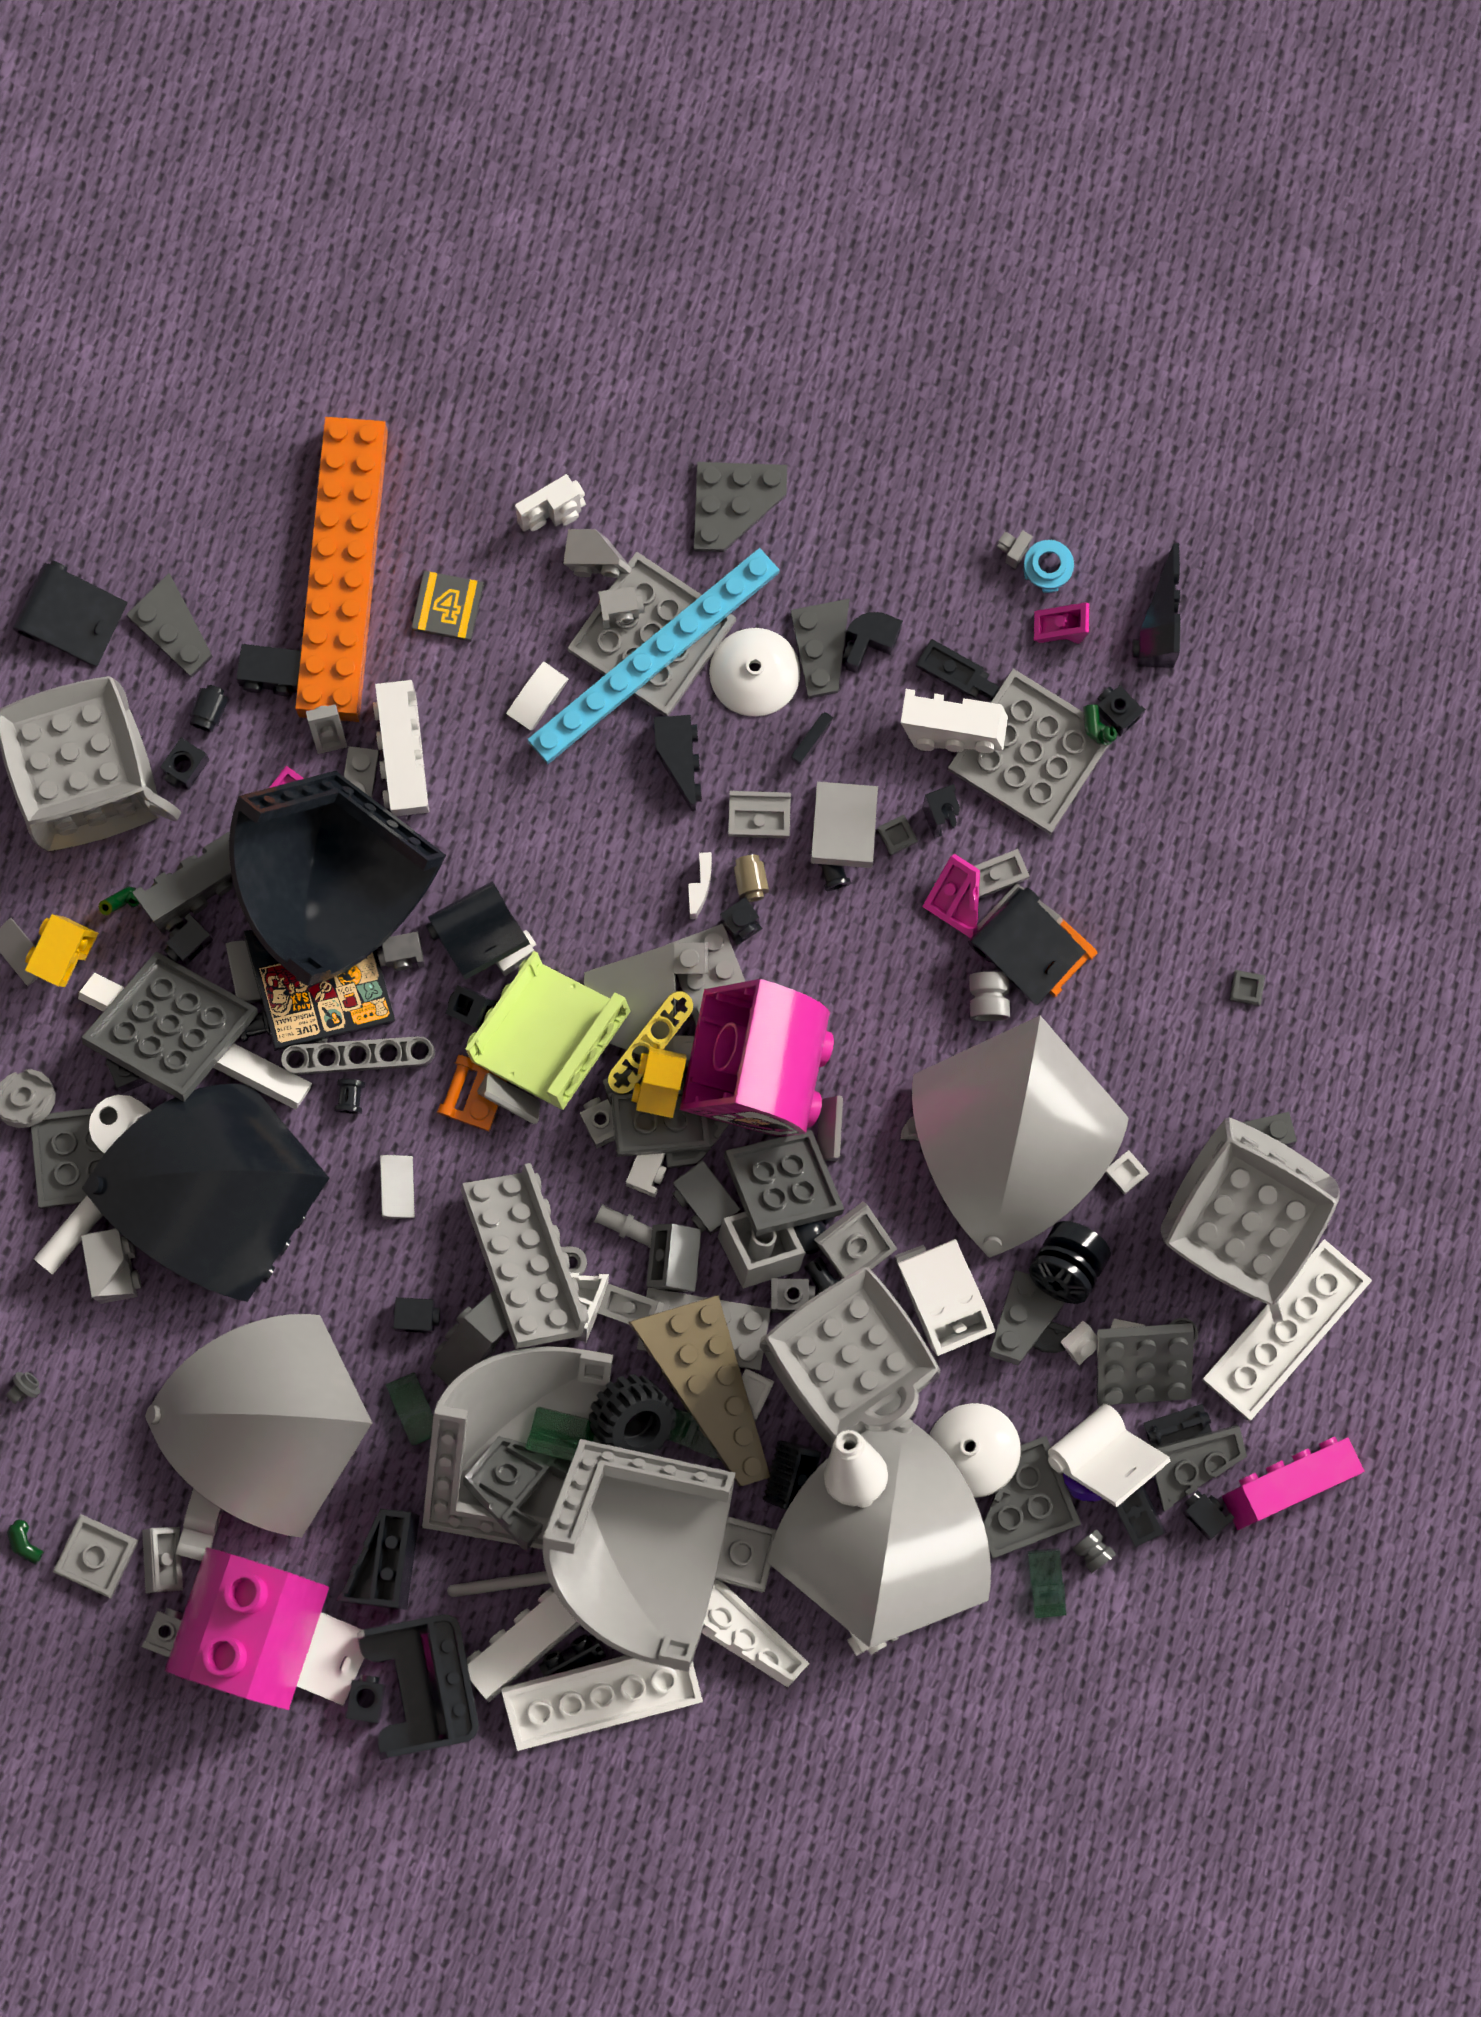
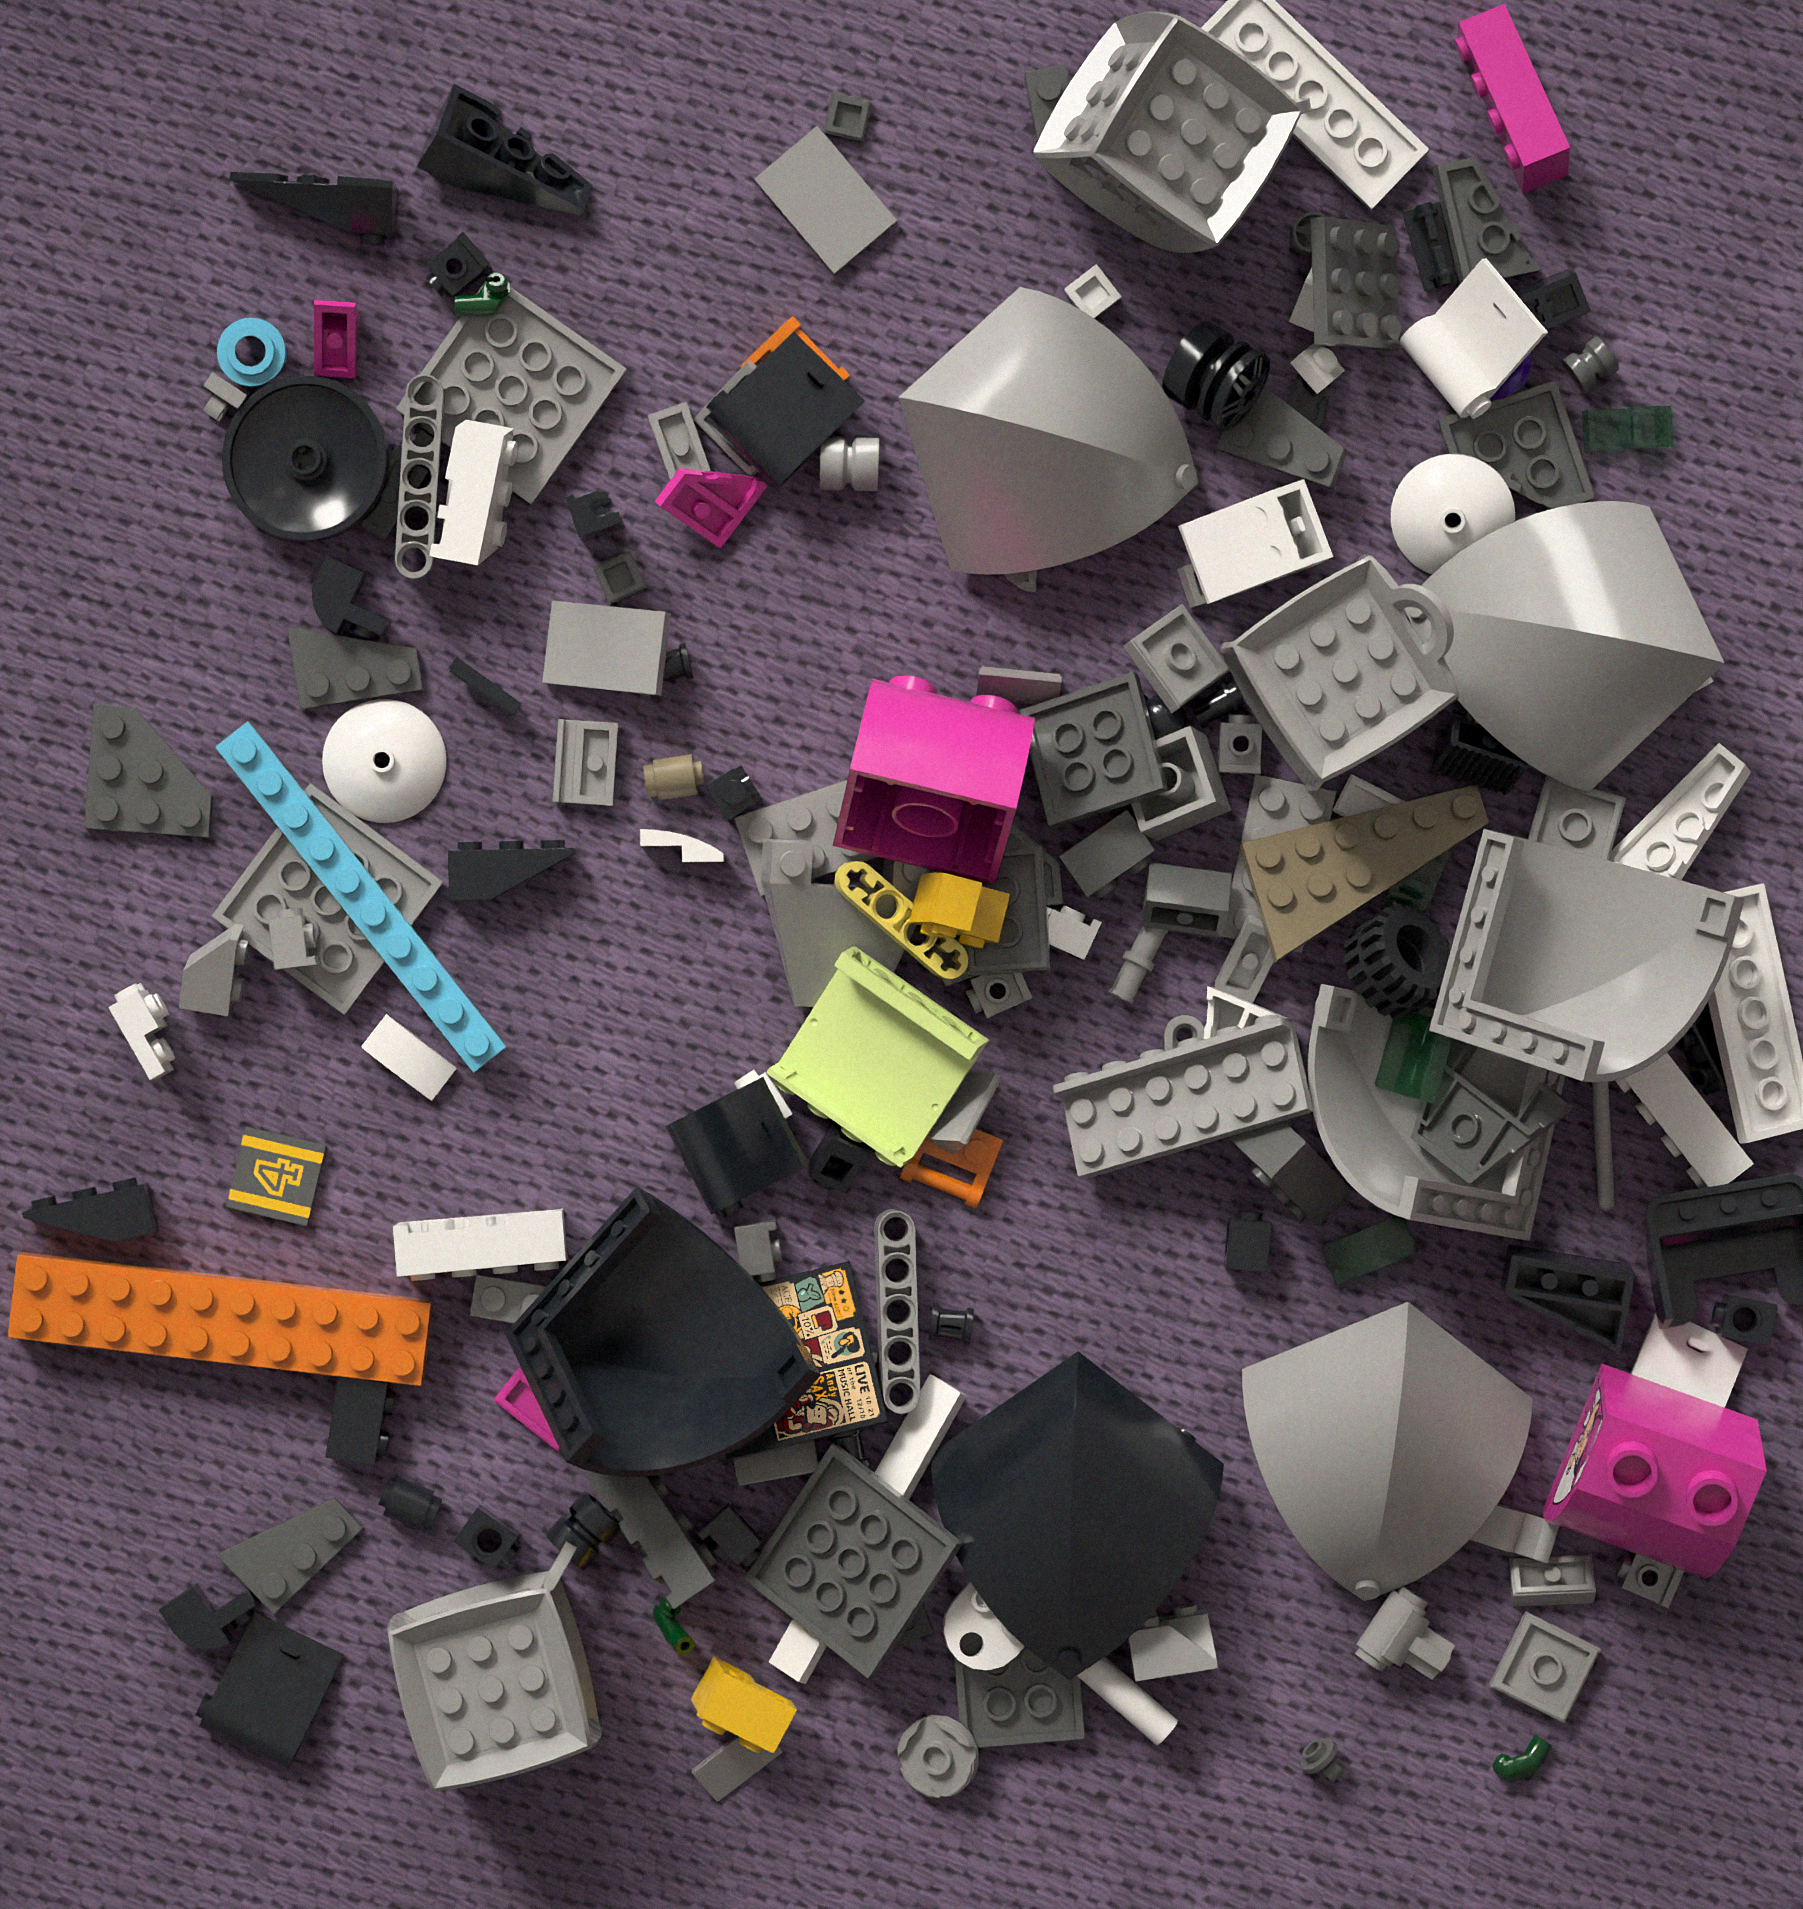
camera: 80 degrees left, 10 degrees up
(118, 561) = (199, 1624): none -> black brick
(119, 1444) = (1402, 1635): none -> light grey piece
(190, 832) = (585, 1529): none -> black wheel
(326, 729) = (448, 1344): light grey plate -> none
(397, 1186) = (1074, 1263): slope -> none
(414, 488) = (107, 1216): none -> black slope
(855, 1471) = (1497, 671): white cone -> none
(973, 604) = (305, 458): none -> black dish
(978, 678) = (412, 456): none -> light grey beam
(1184, 974) = (825, 200): none -> light grey tile
(1201, 727) = (484, 156): none -> black wedge
(1206, 1514) = (1549, 214): black brick -> none

